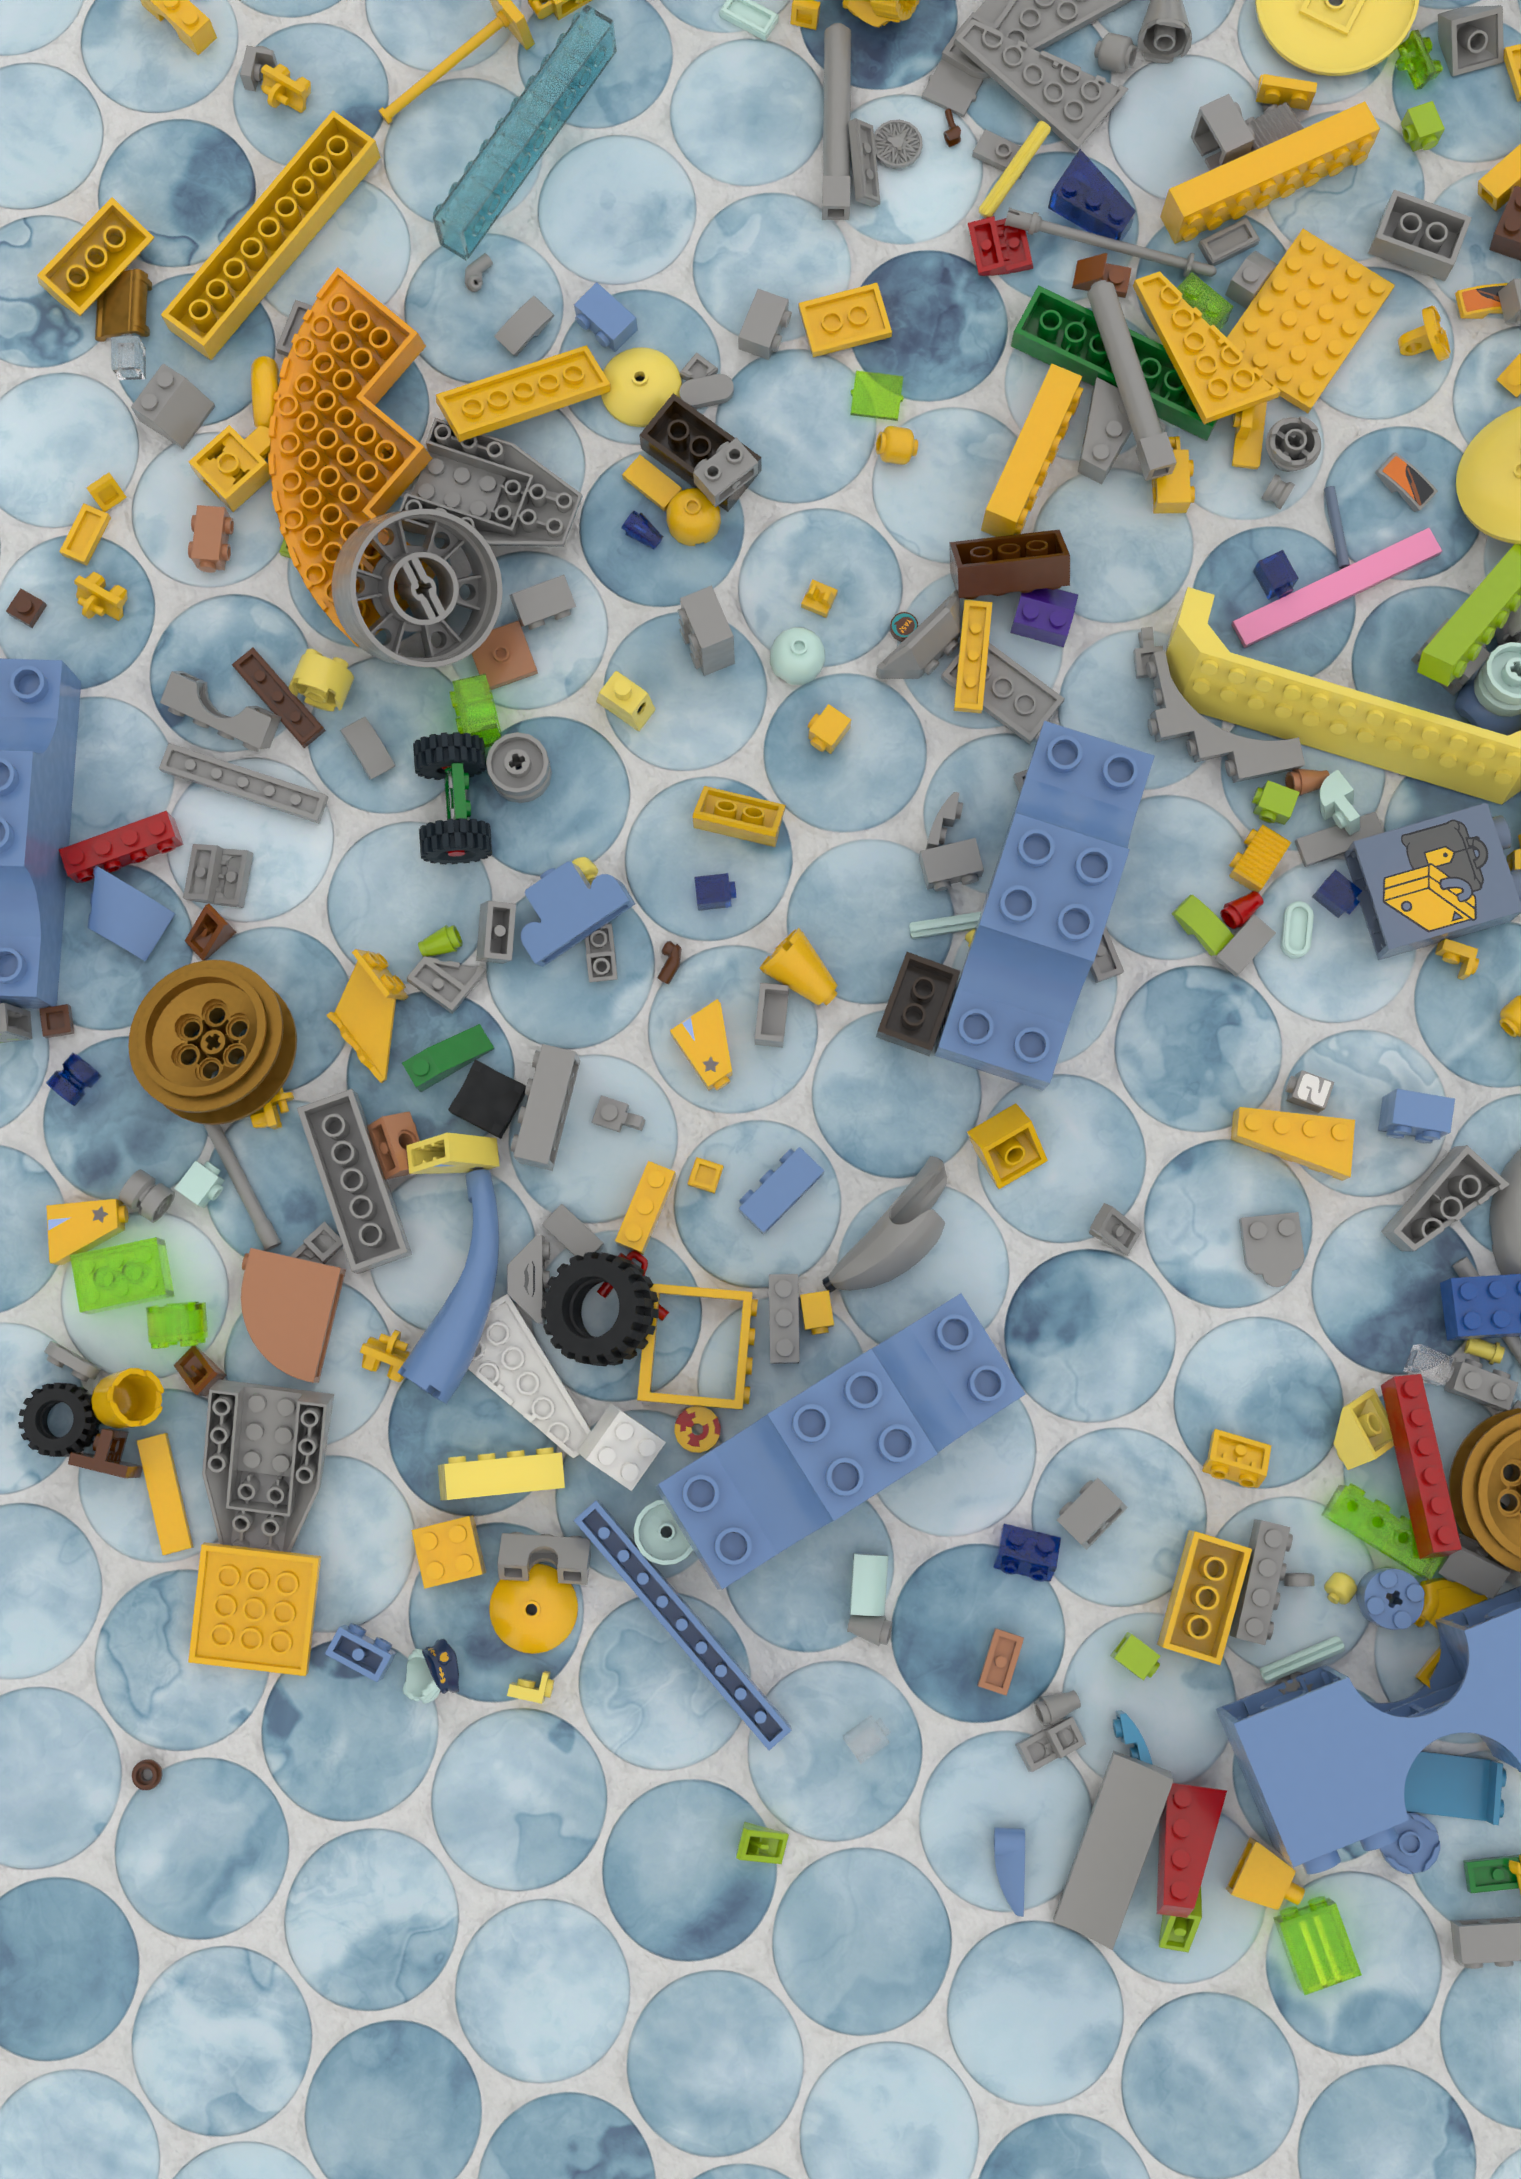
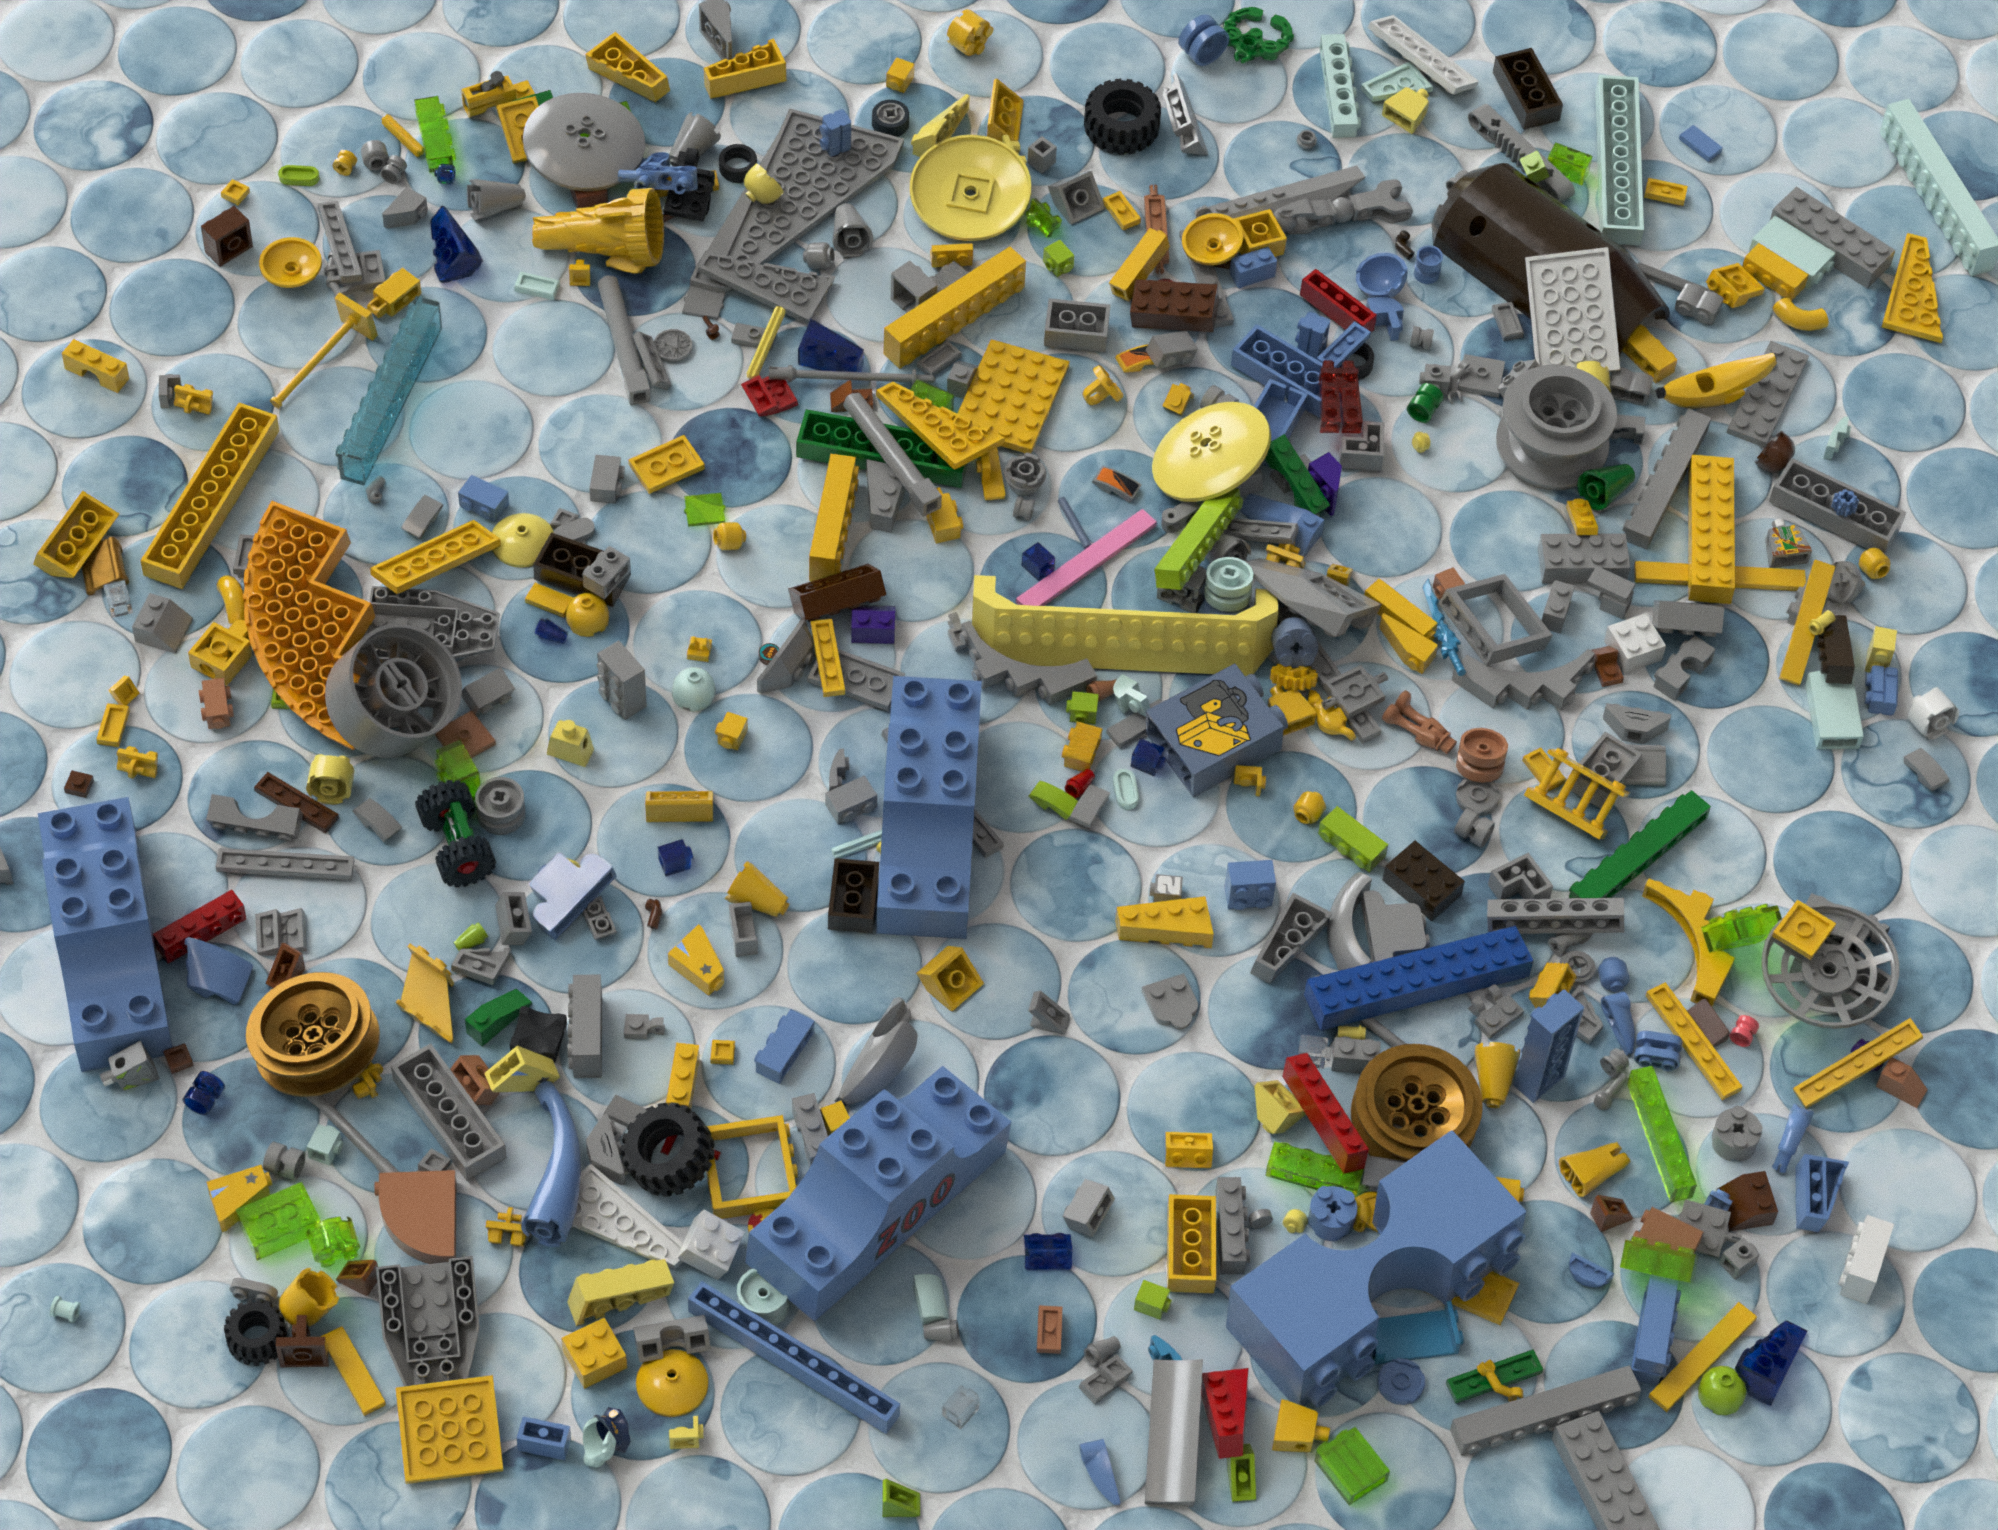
camera: 20 degrees left, 25 degrees down
(1472, 551) = (1178, 517): none -> light grey leg

